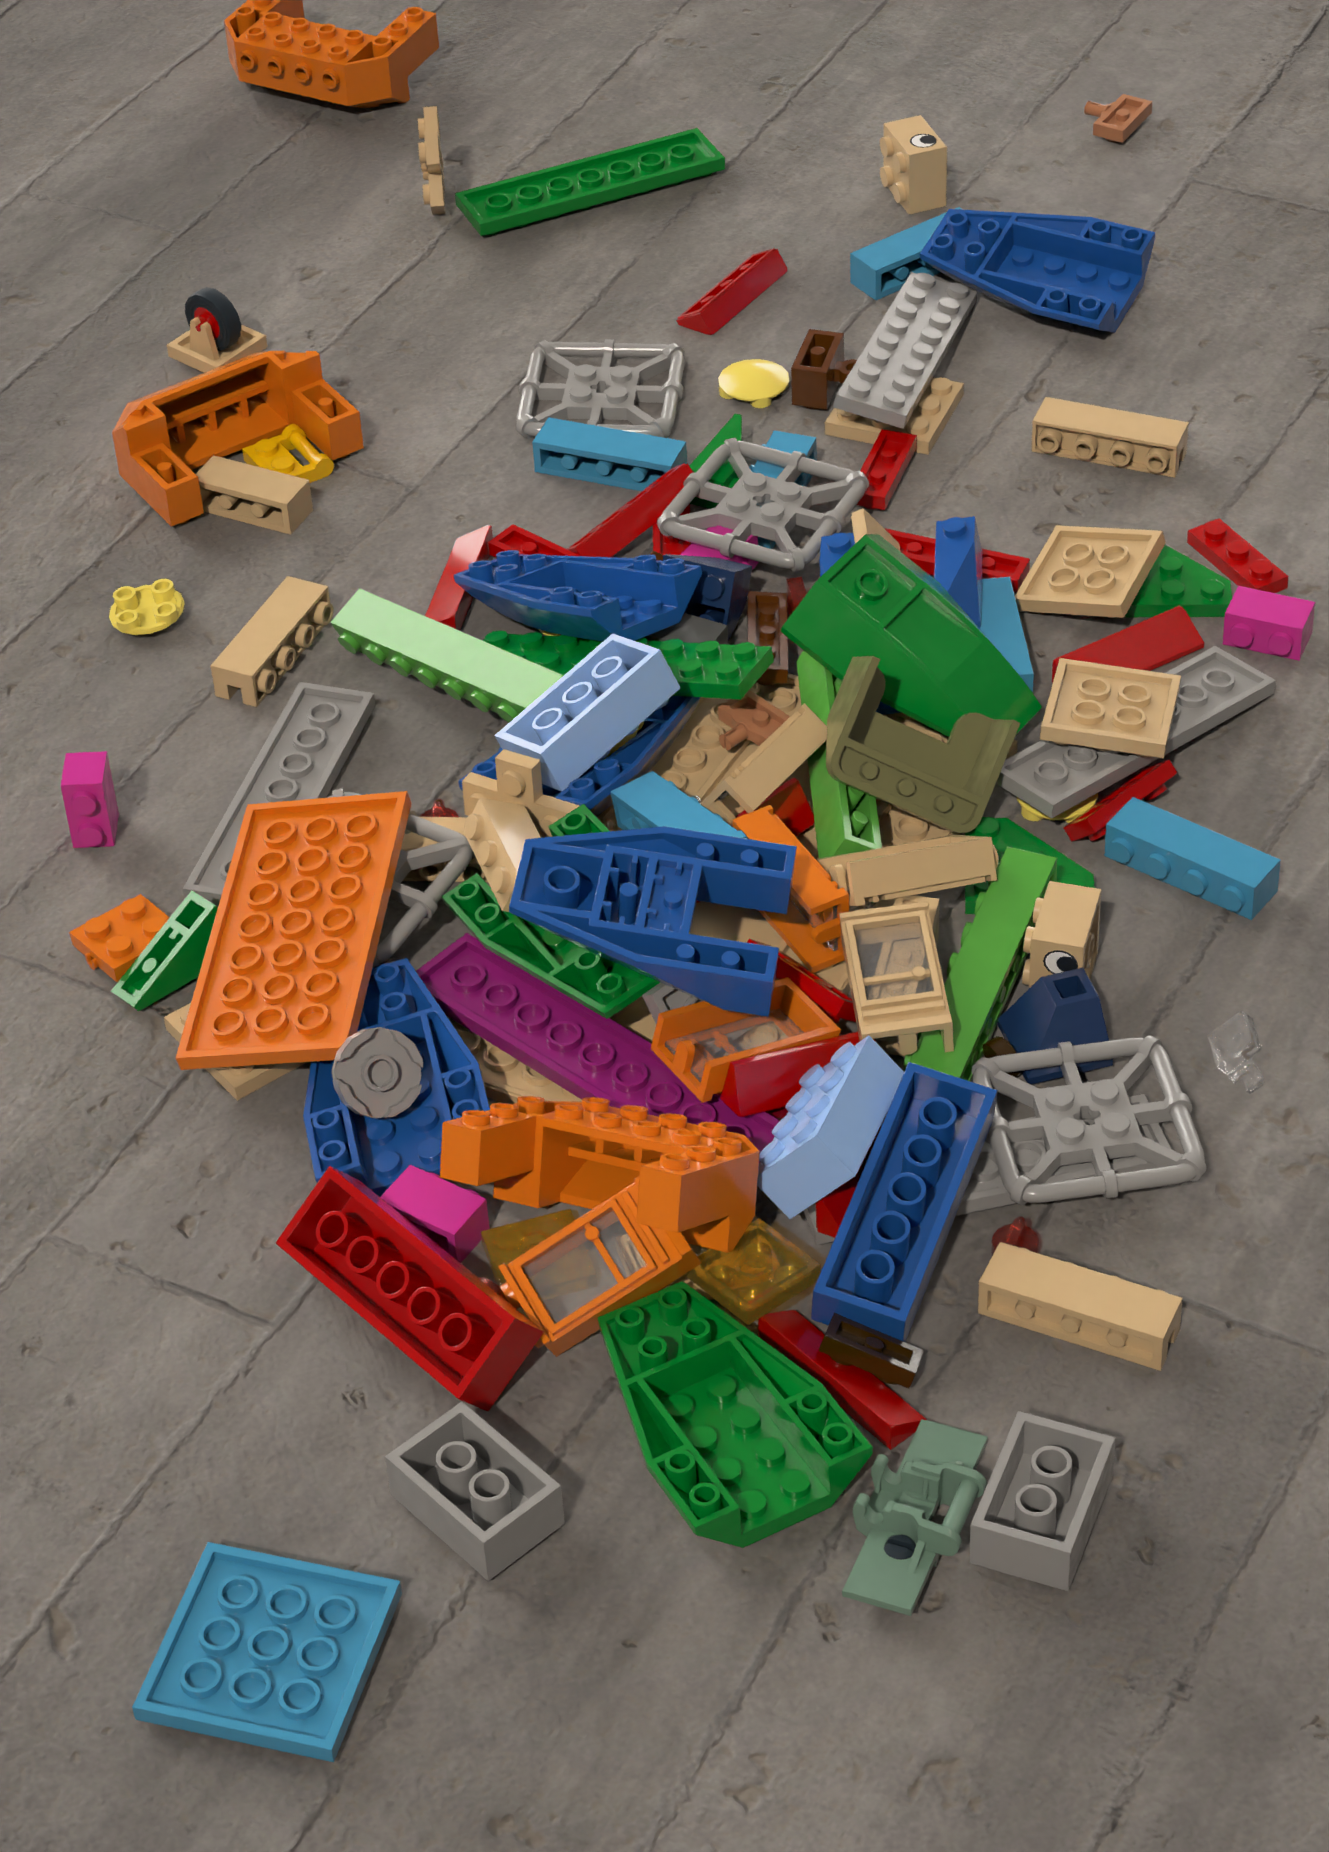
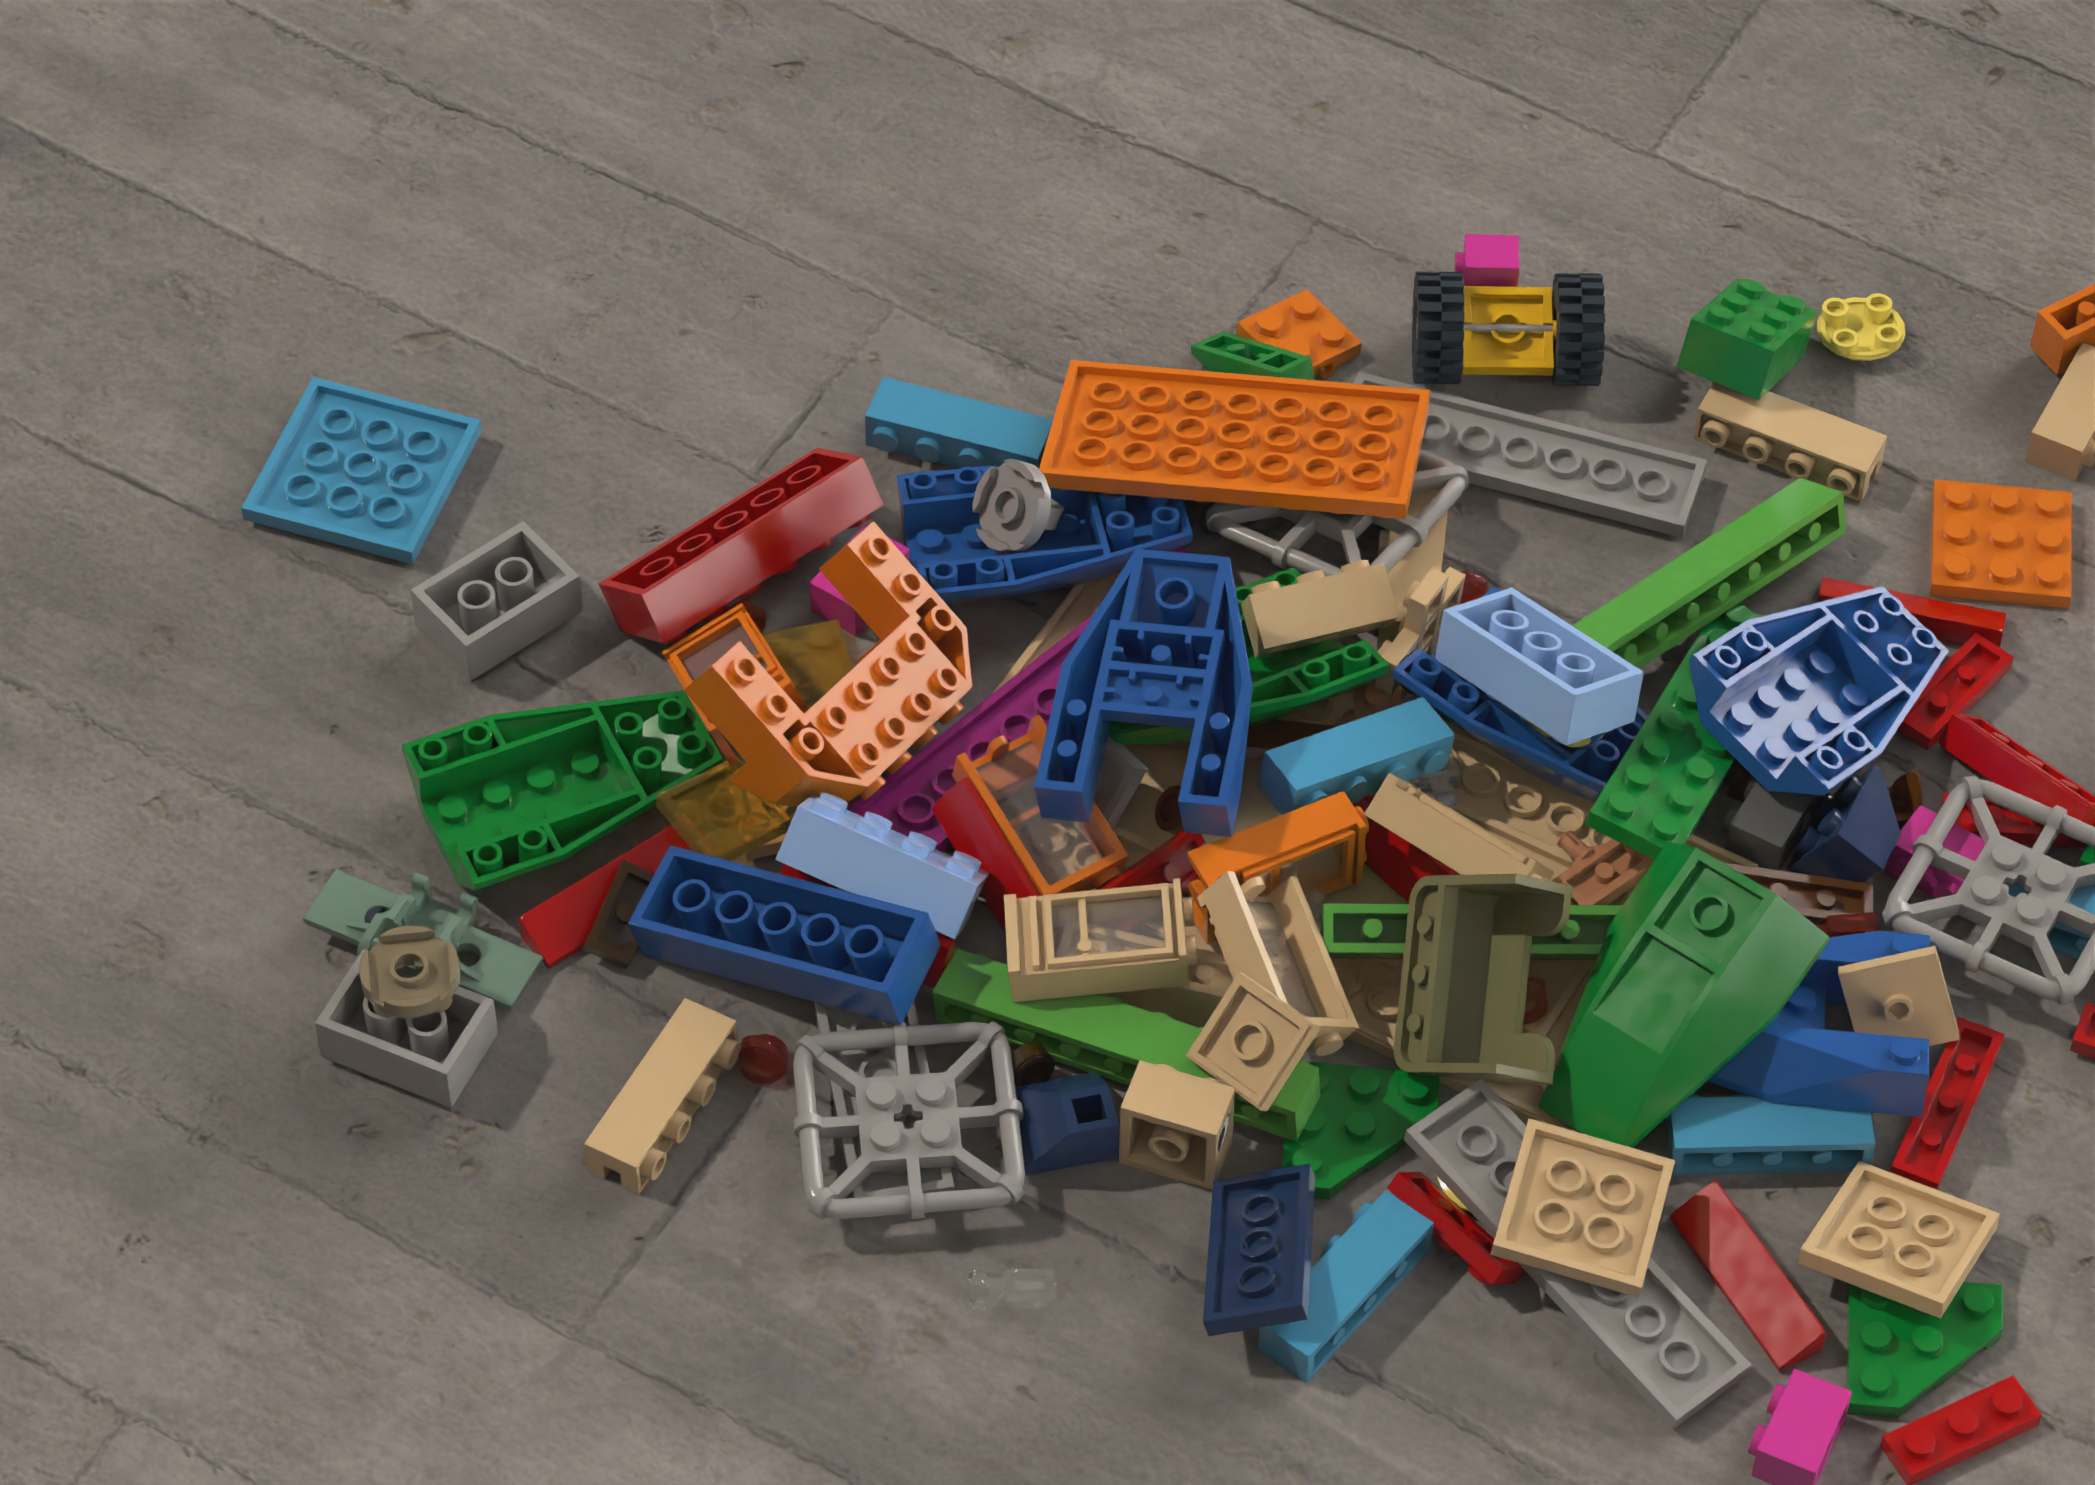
camera: 90 degrees right, 10 degrees up
(153, 807) = (1508, 329): none -> plate
(177, 644) = (1747, 338): none -> green brick
(241, 1158) = (951, 427): none -> dark azure brick
(383, 541) = (2001, 544): none -> orange plate
(1003, 1491) = (413, 996): none -> dark tan plate
(1006, 865) = (1253, 1041): none -> tan plate
(1182, 891) = (1259, 1250): none -> dark blue plate

